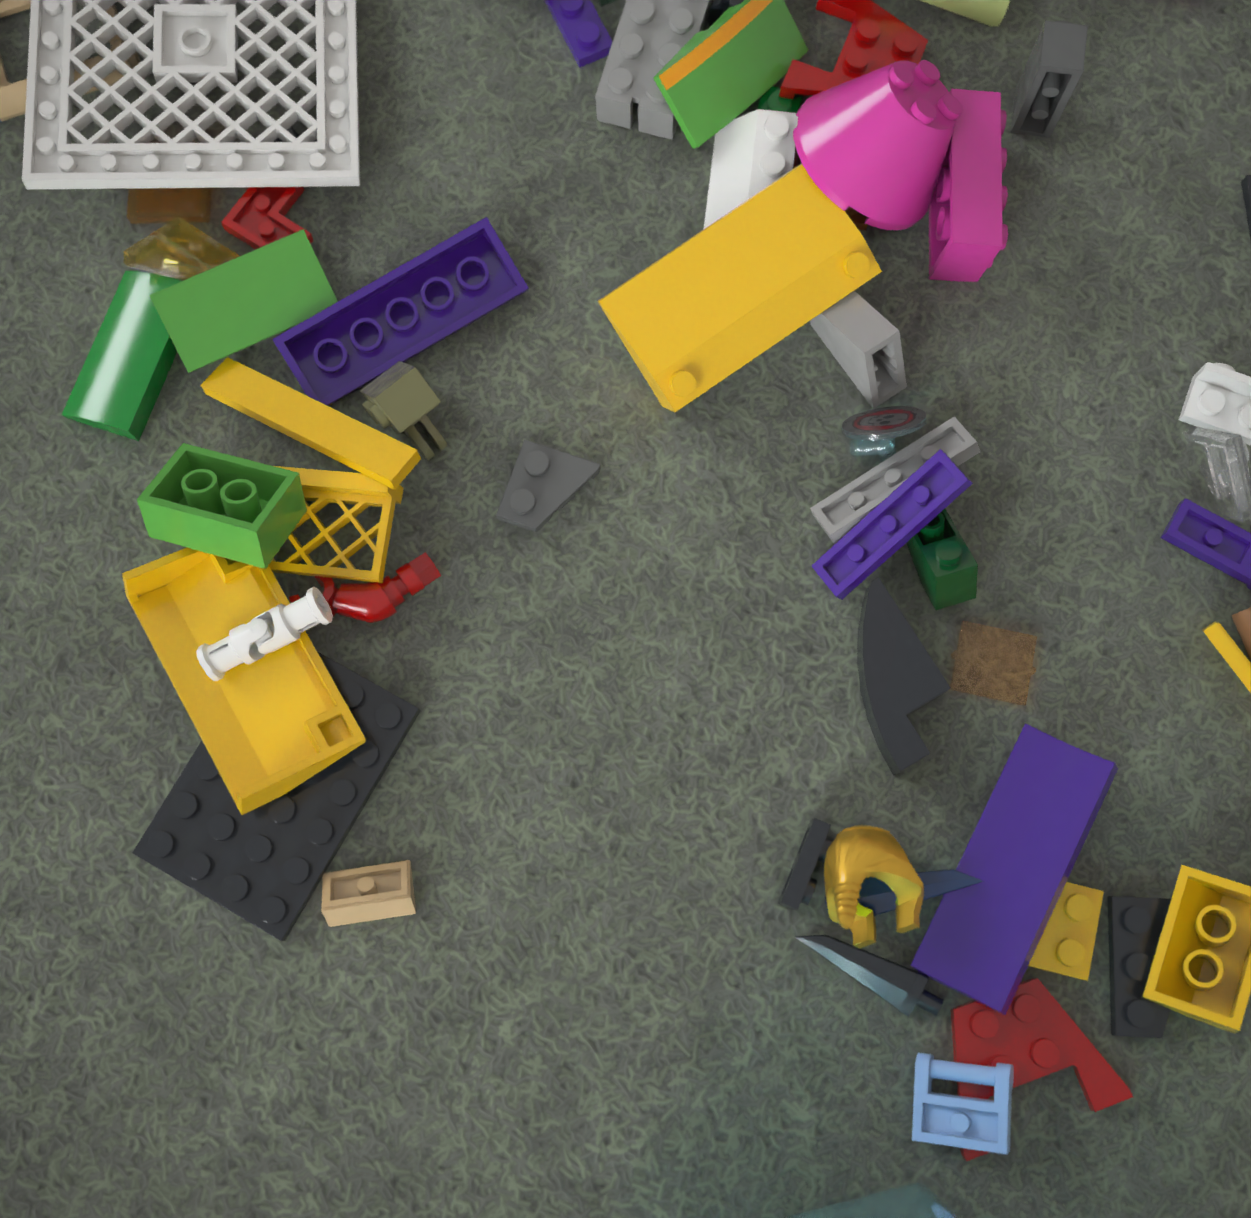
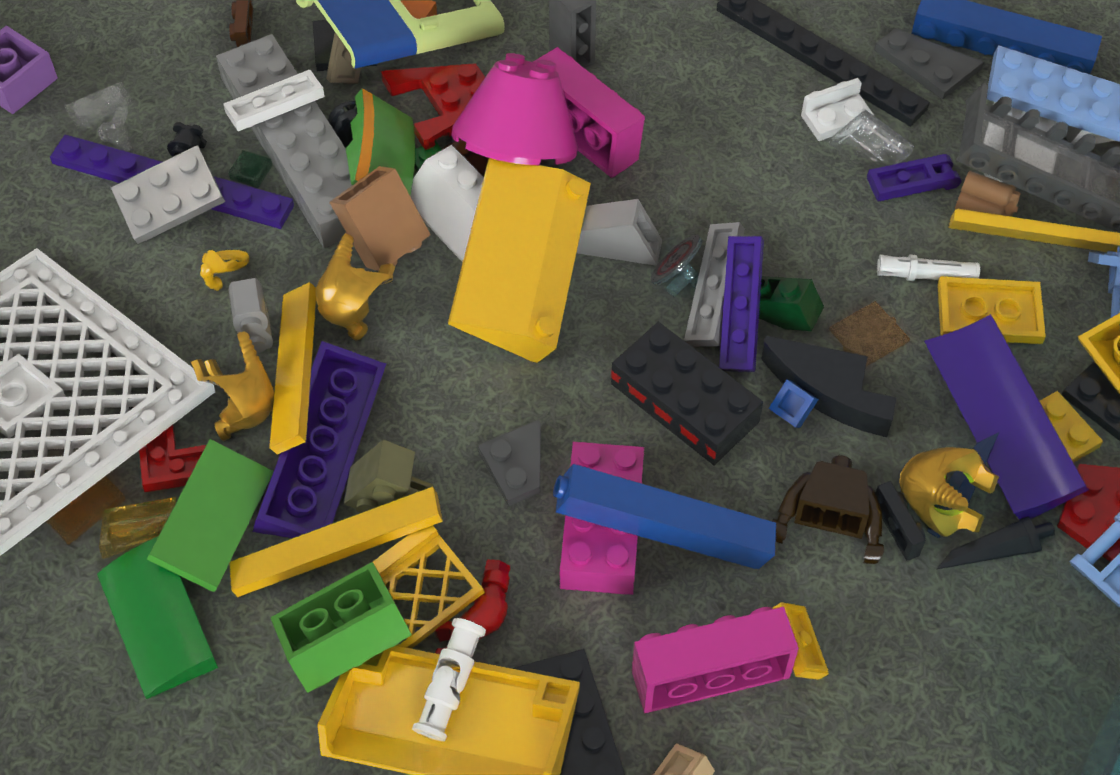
camera: 50 degrees left, 20 degrees down
(371, 216) = (248, 392): none -> pearl gold piece
(439, 222) = (293, 369): none -> yellow tile
(451, 137) = (251, 312): none -> light grey brick
(474, 54) = (214, 263): none -> yellow piece
(494, 827) = (713, 658): none -> dark pink brick
(548, 185) = (345, 290): none -> pearl gold piece
(552, 608) = (592, 554): none -> dark pink brick
(584, 666) = (665, 516): none -> blue brick
(597, 881) = (809, 658): none -> yellow plate
(653, 136) = (380, 218): none -> medium nougat brick
(751, 561) = (686, 393): none -> black brick
(767, 791) = (835, 501): none -> dark brown torso
(837, 664) = (793, 403): none -> blue plate
(1125, 654) = (921, 268): none -> white pin
(1153, 759) = (1011, 303): none -> yellow plate

